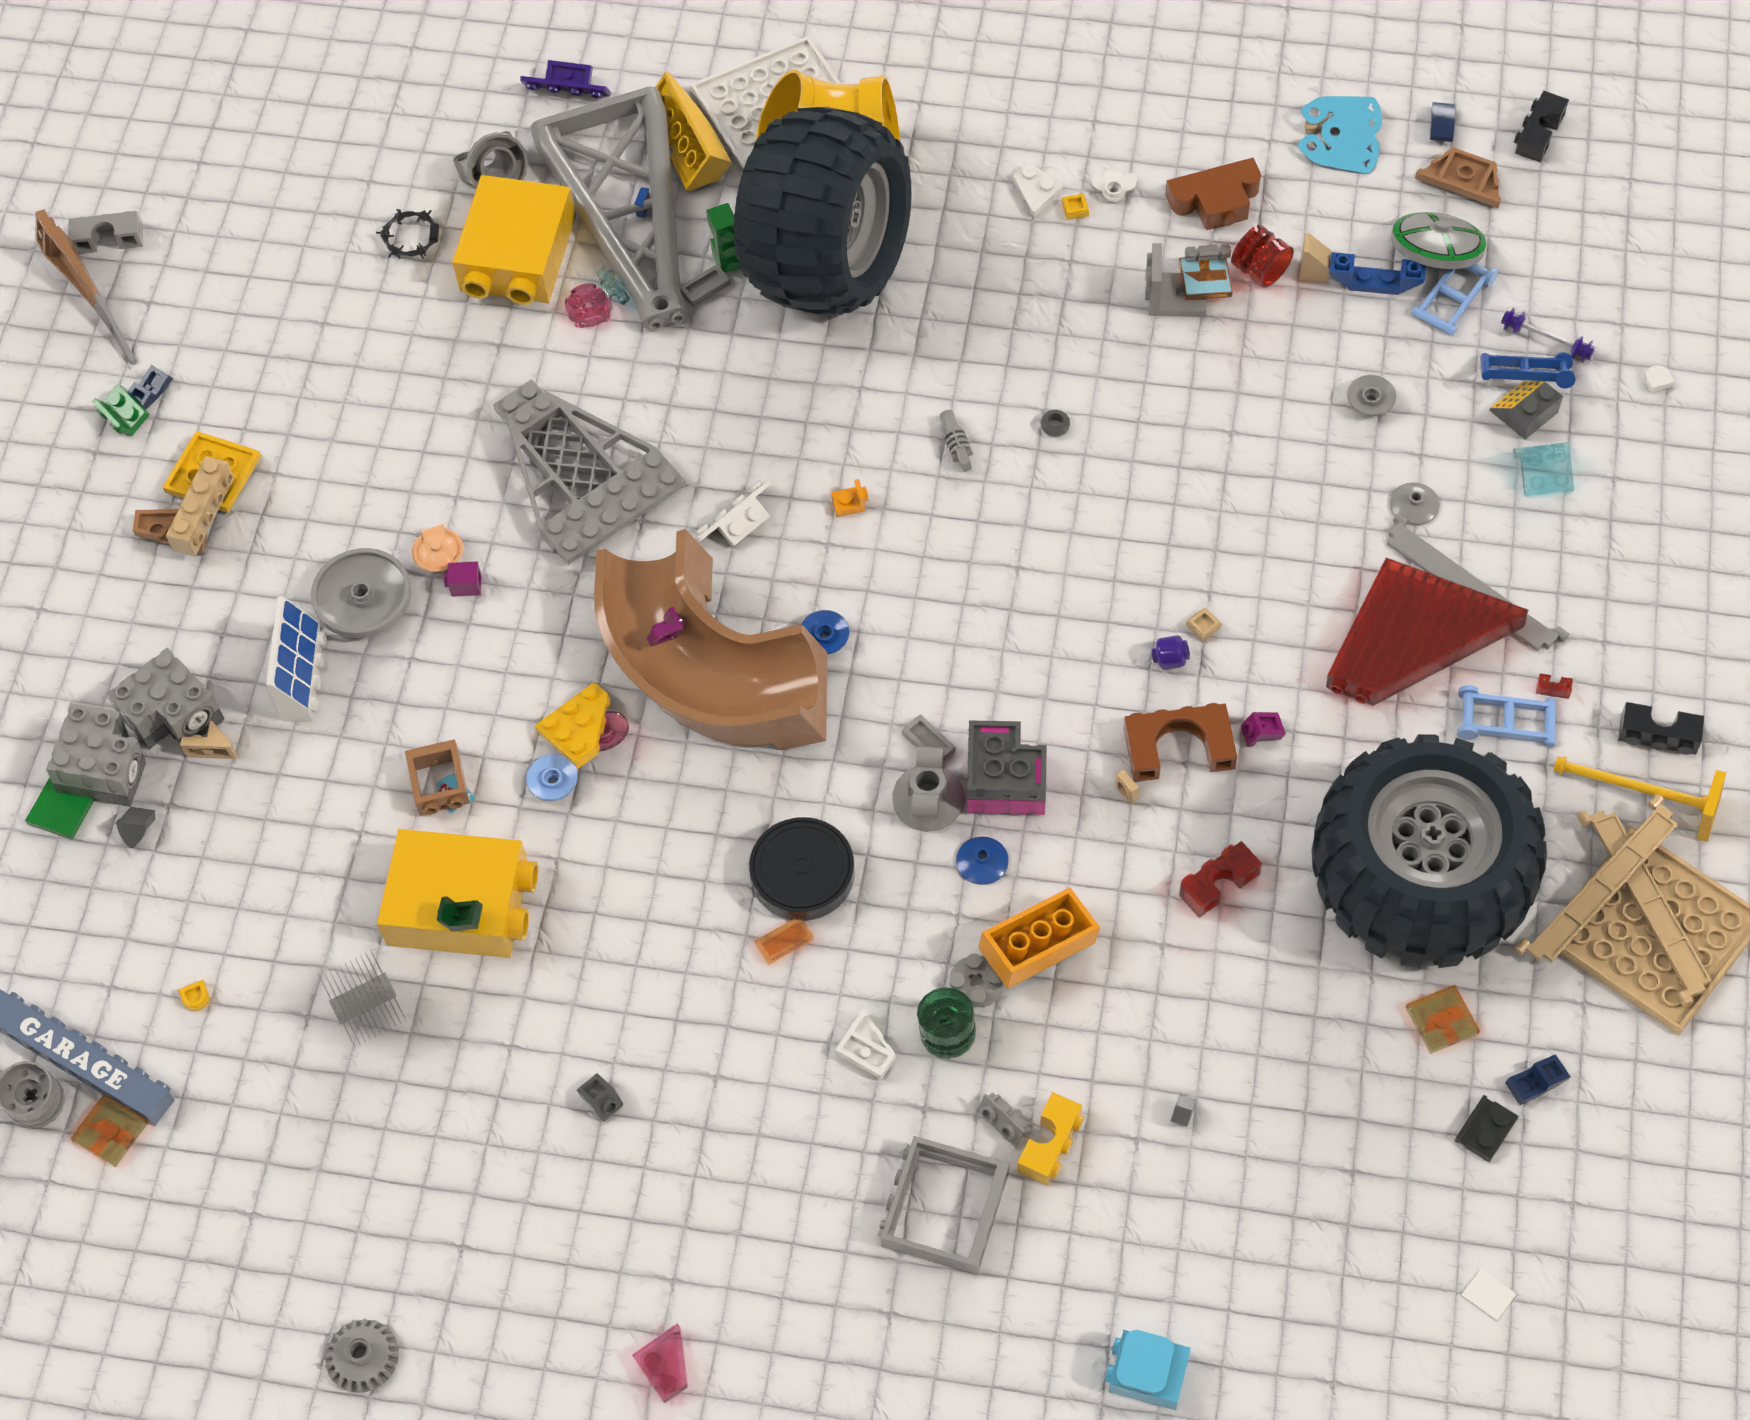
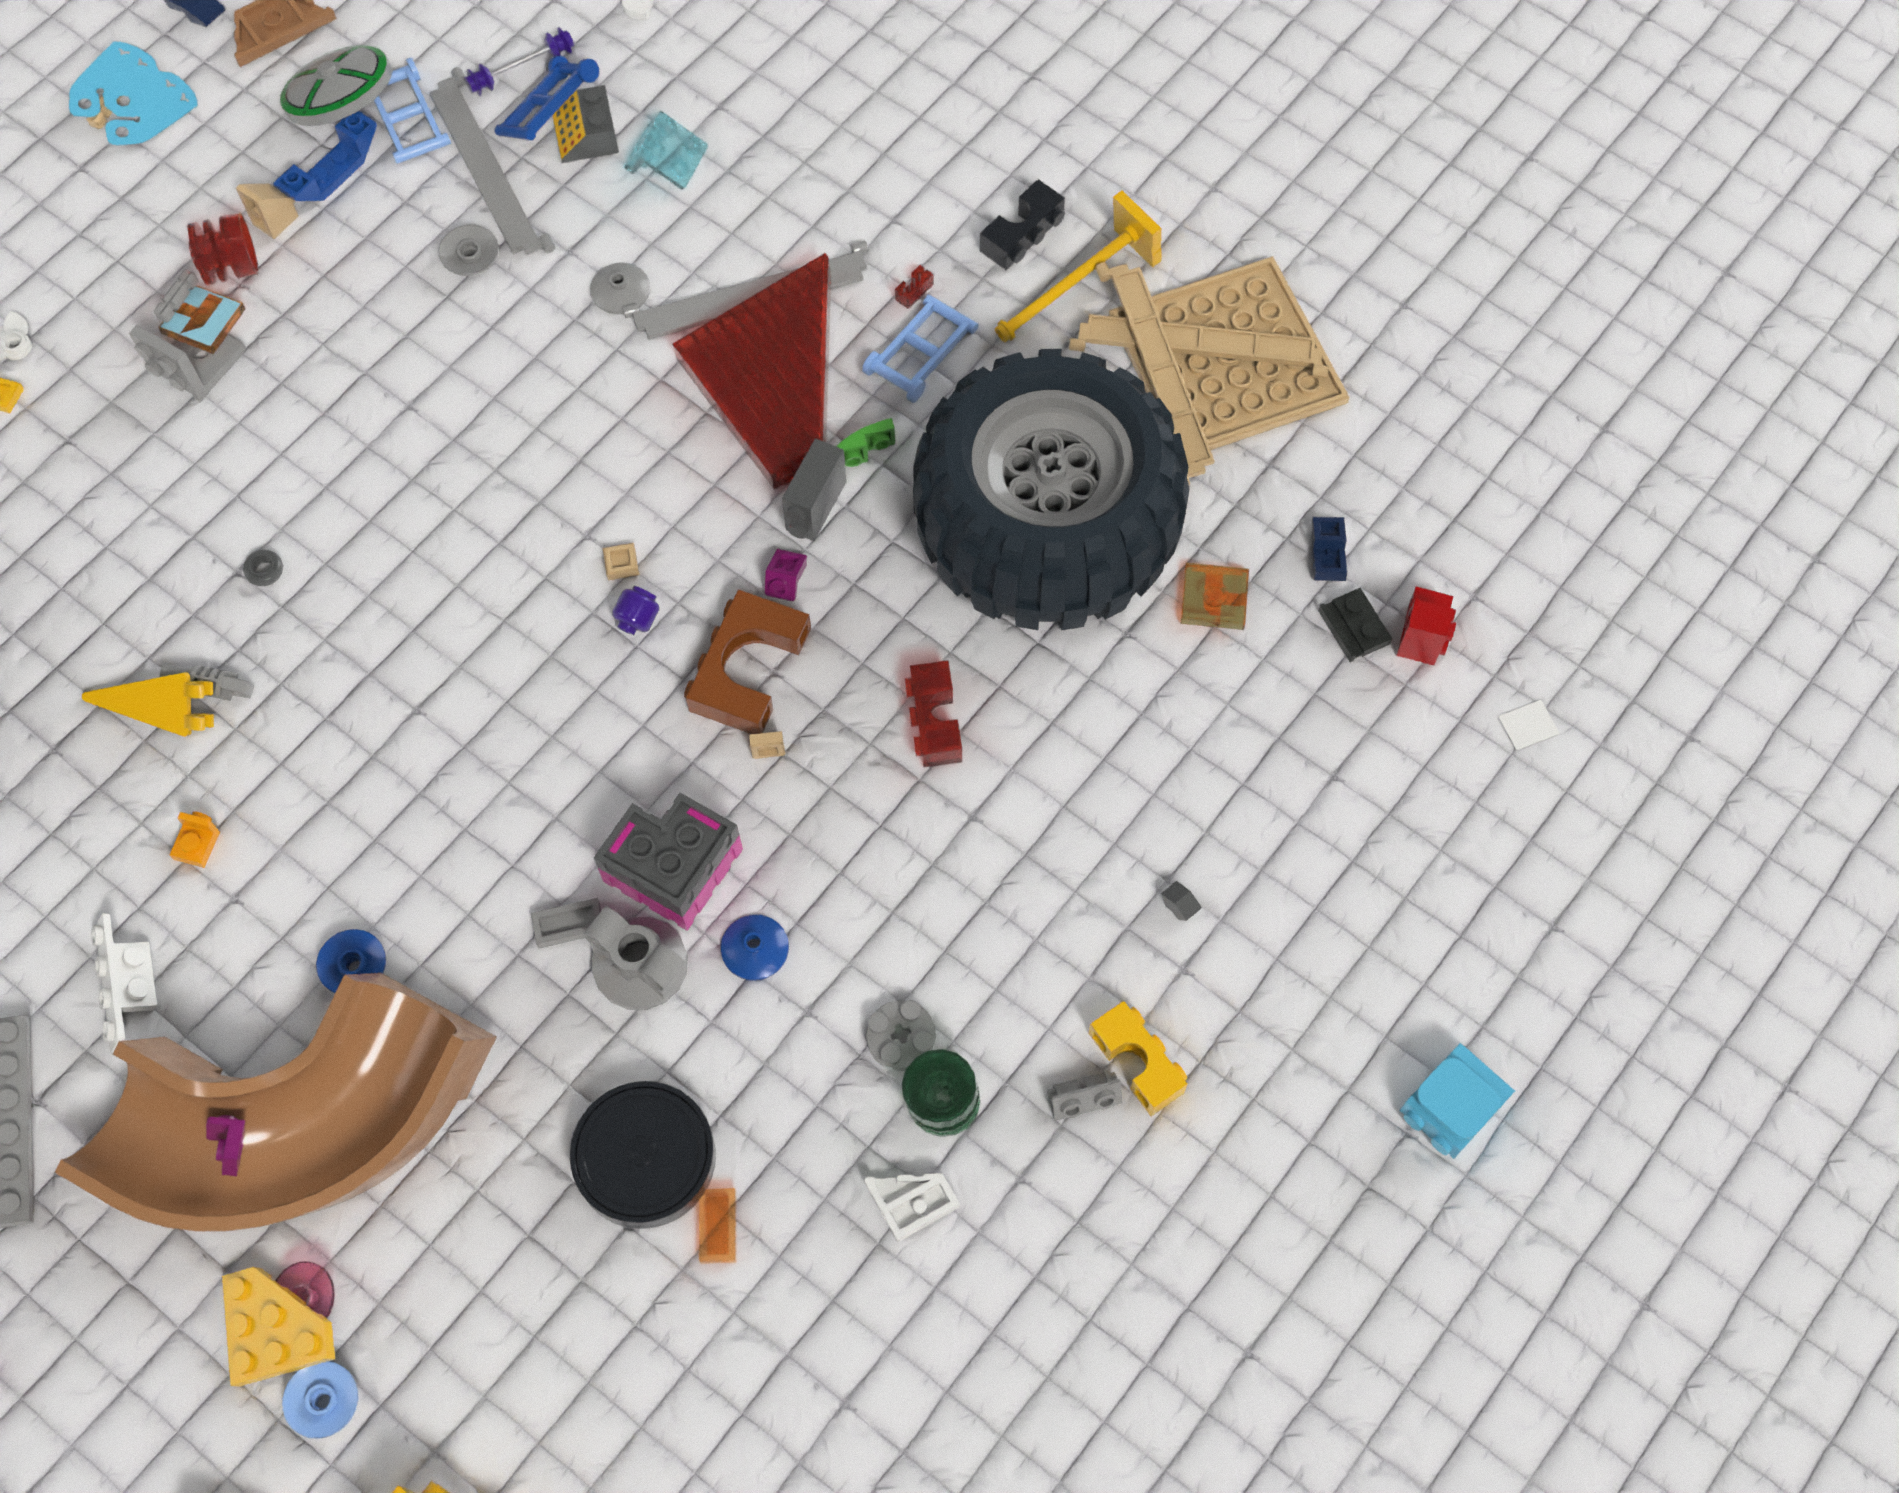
camera: 65 degrees left, 5 degrees up
(903, 1179) = (1193, 1176): light grey window -> none
(925, 423) = (158, 702): none -> yellow flag
(1038, 937) = (898, 936): light orange brick -> none
(1216, 193) = (104, 249): dark orange brick -> none
(1334, 708) = (814, 490): none -> dark grey brick
(1392, 718) = (874, 436): none -> bright green slope
(1448, 367) = (485, 168): none -> light grey piece
(1516, 1175) = (1427, 626): none -> red brick

